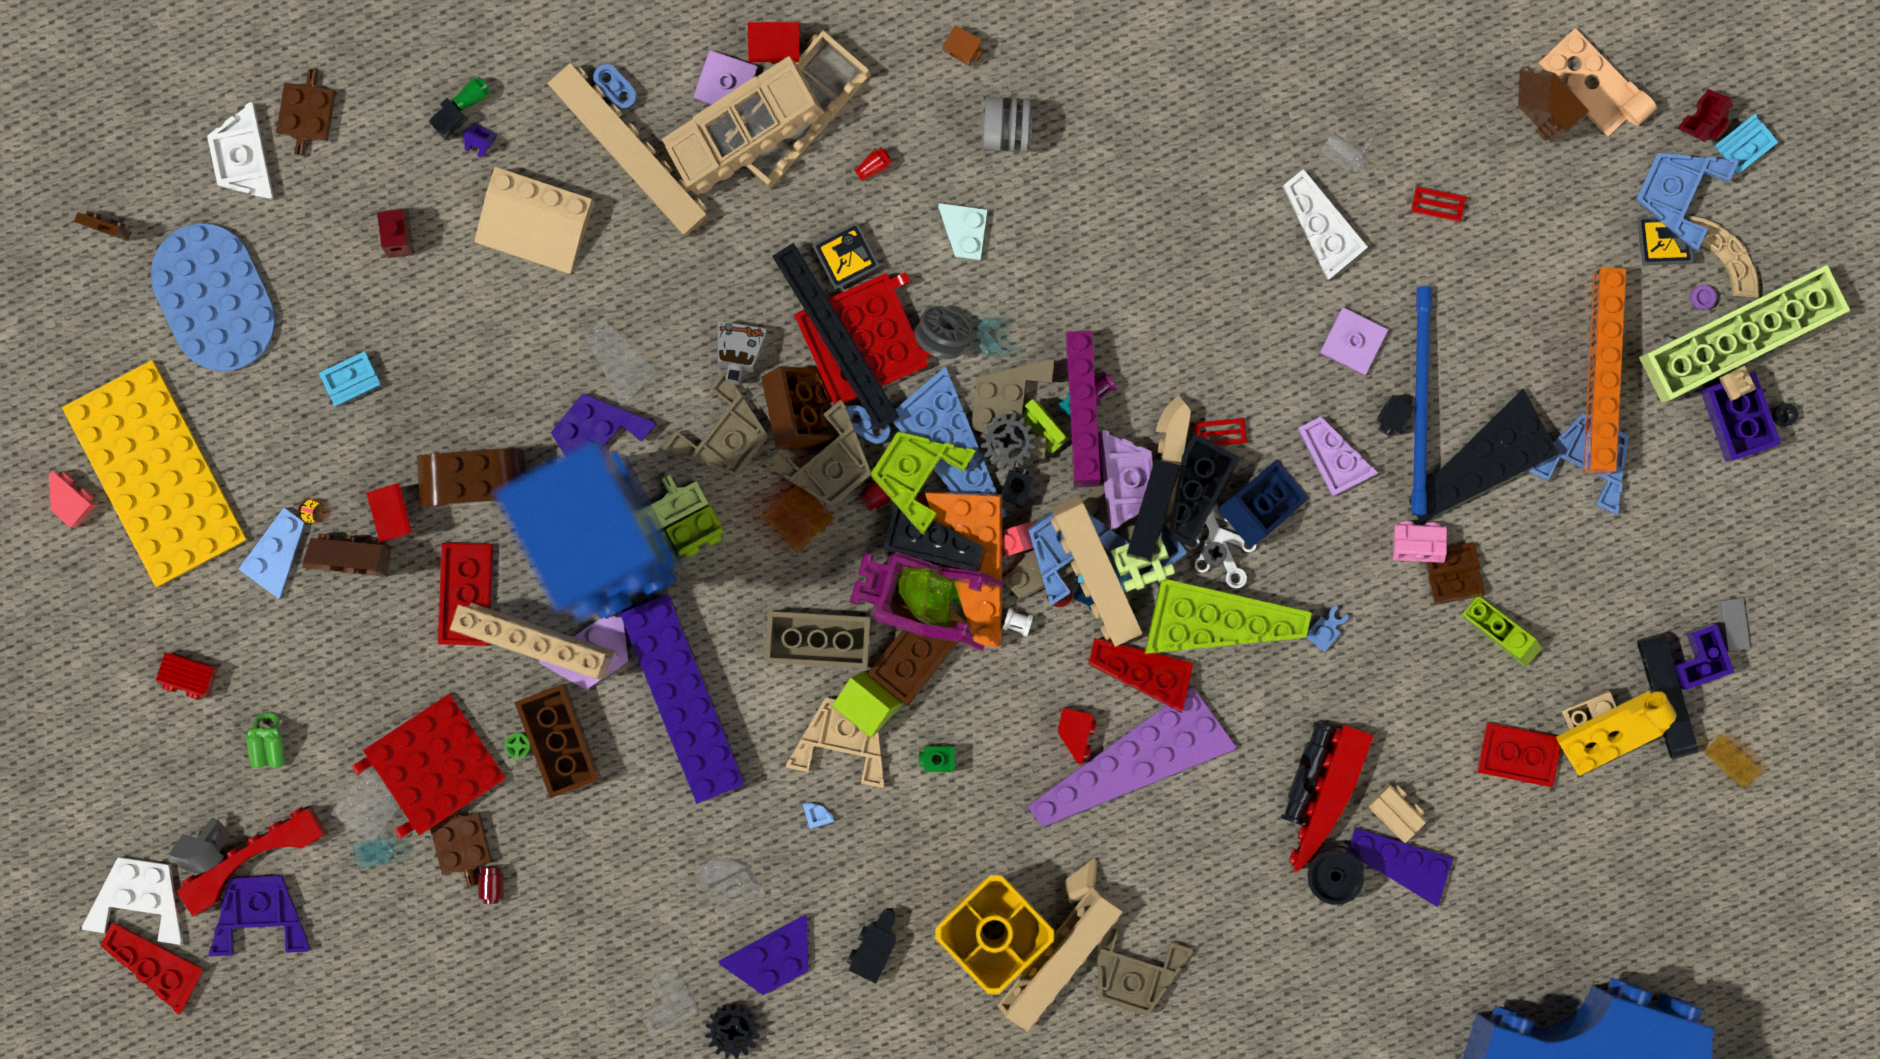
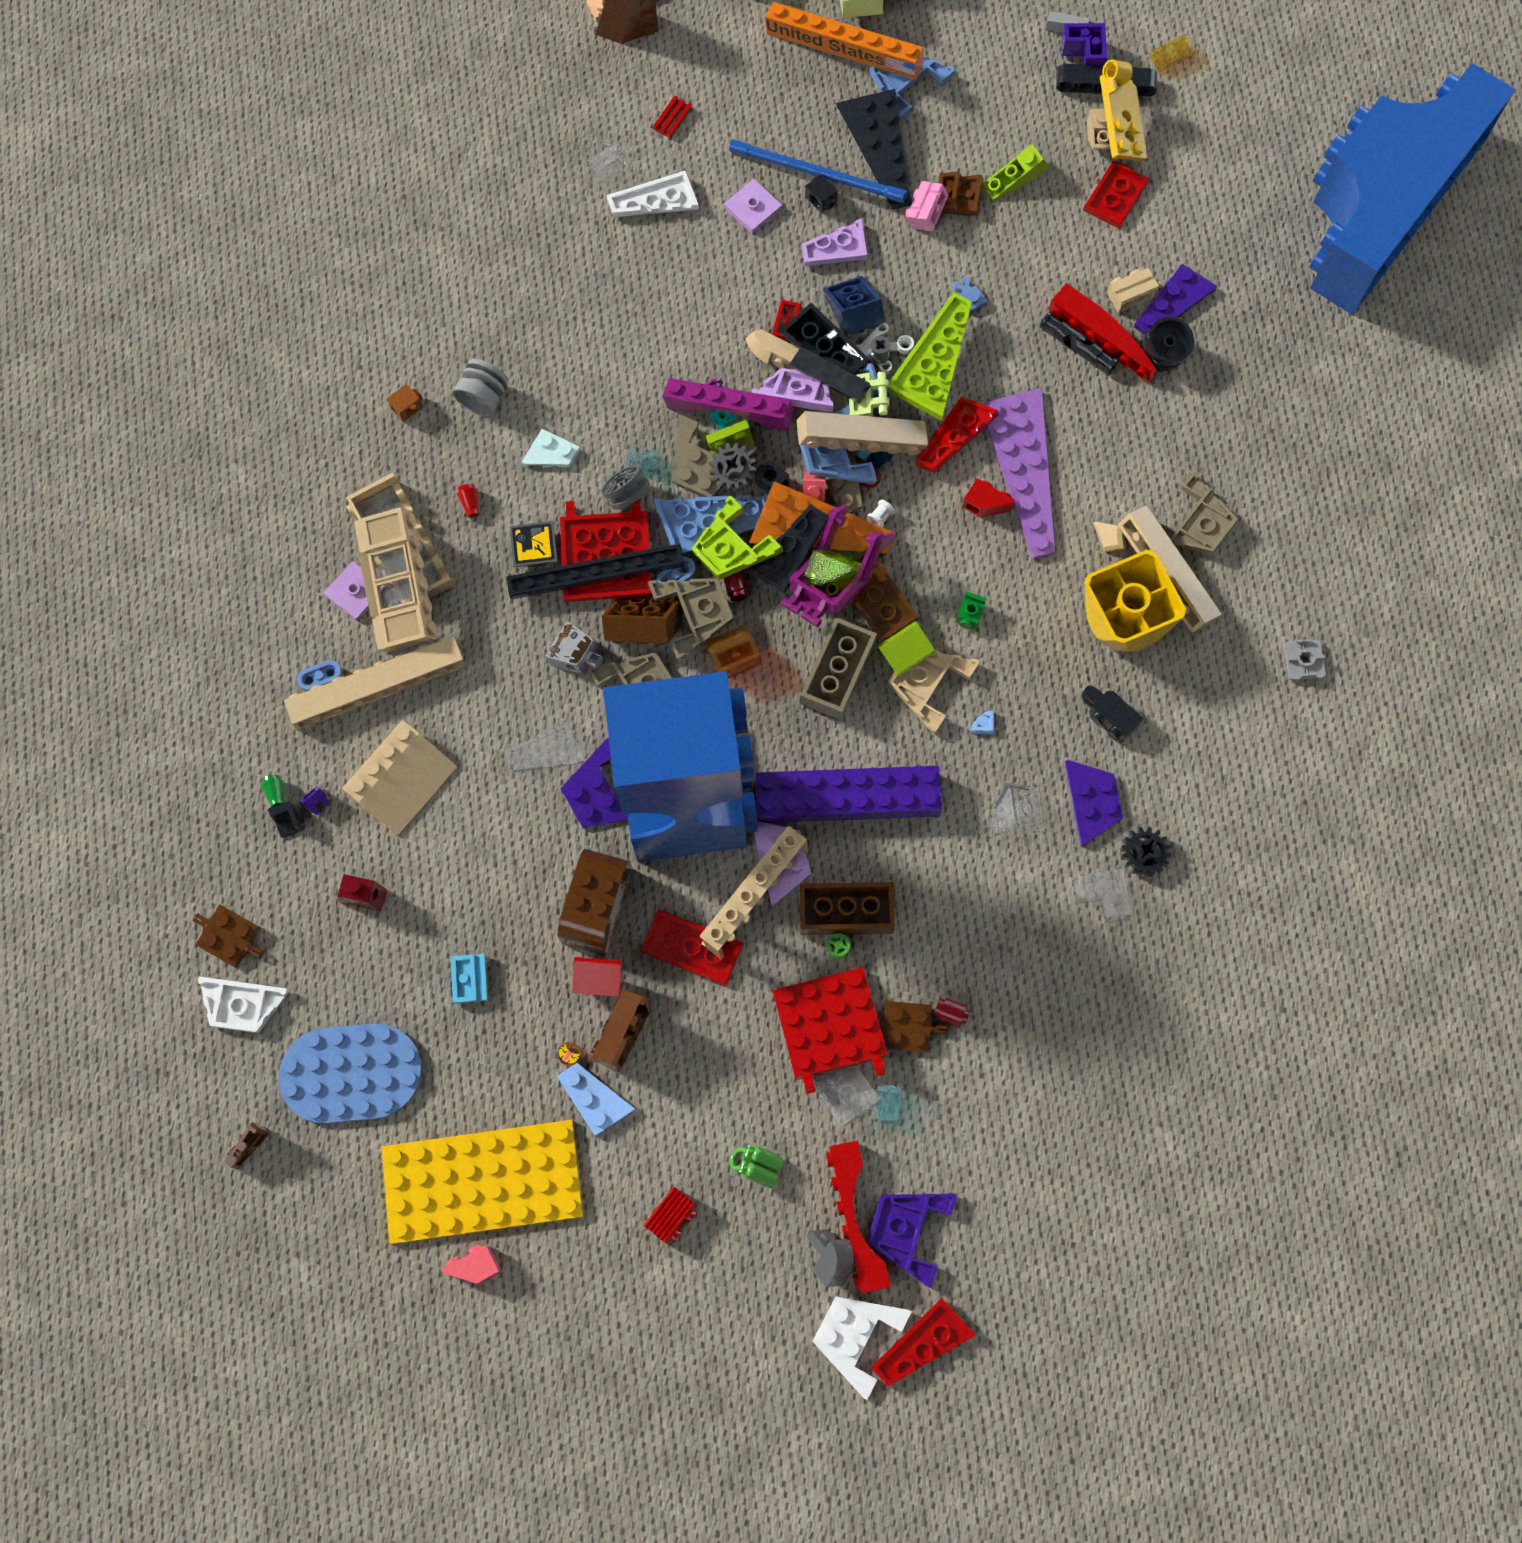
camera: 65 degrees left, 15 degrees down
(773, 41) = (335, 536): red slope -> none

